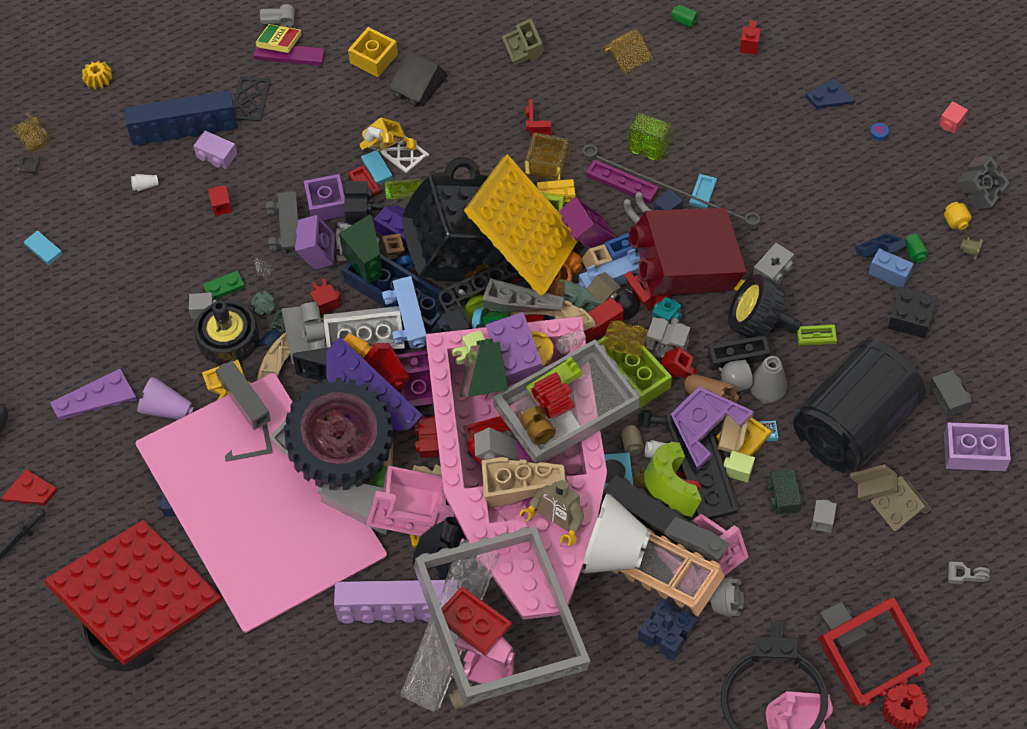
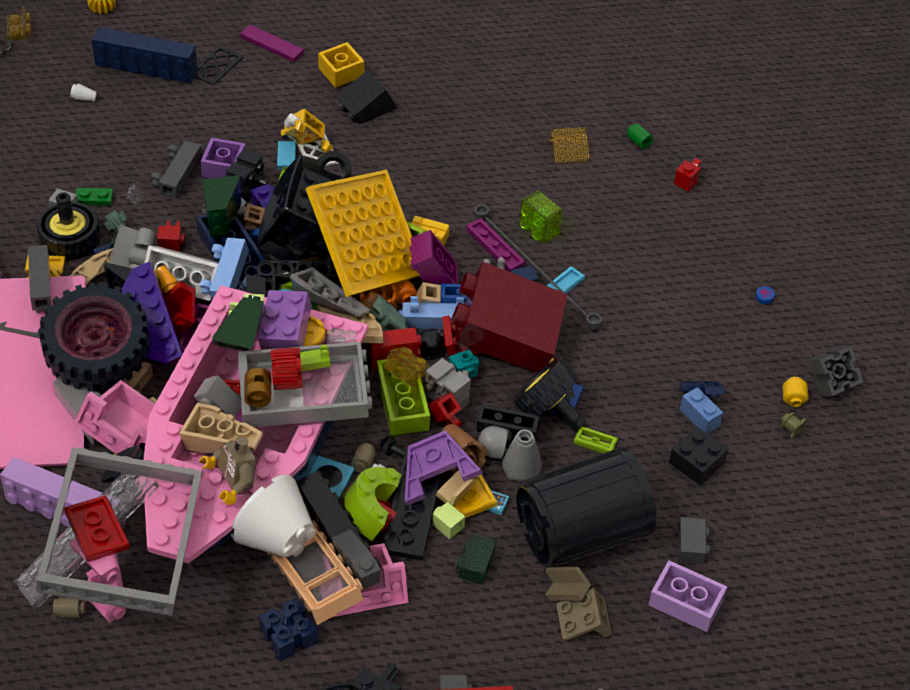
camera: 20 degrees right, 10 degrees down
(215, 150) = (158, 91): lavender brick -> none
(220, 200) = (135, 130): red brick -> none
(278, 38) = (269, 27): tile -> none
(282, 16) = (285, 13): light grey piece -> none
(315, 242) = (187, 188): medium lavender brick -> none
(362, 174) = (269, 161): red tile -> none
(524, 43) = (478, 105): olive brick -> none
(540, 127) = (445, 174): red bracket -> none
(546, 156) = (438, 199): clear yellow brick -> none
(603, 288) = (415, 316): dark tan brick -> none
(728, 598) = (361, 625): light grey cone -> none
(775, 263) = (591, 365): light grey brick -> none
(823, 516) = (500, 595): light grey brick -> none
(829, 95) = (736, 248): dark blue wing -> none
(916, 249) = (737, 404): green brick -> none
(953, 117) = (843, 308): coral brick -> none

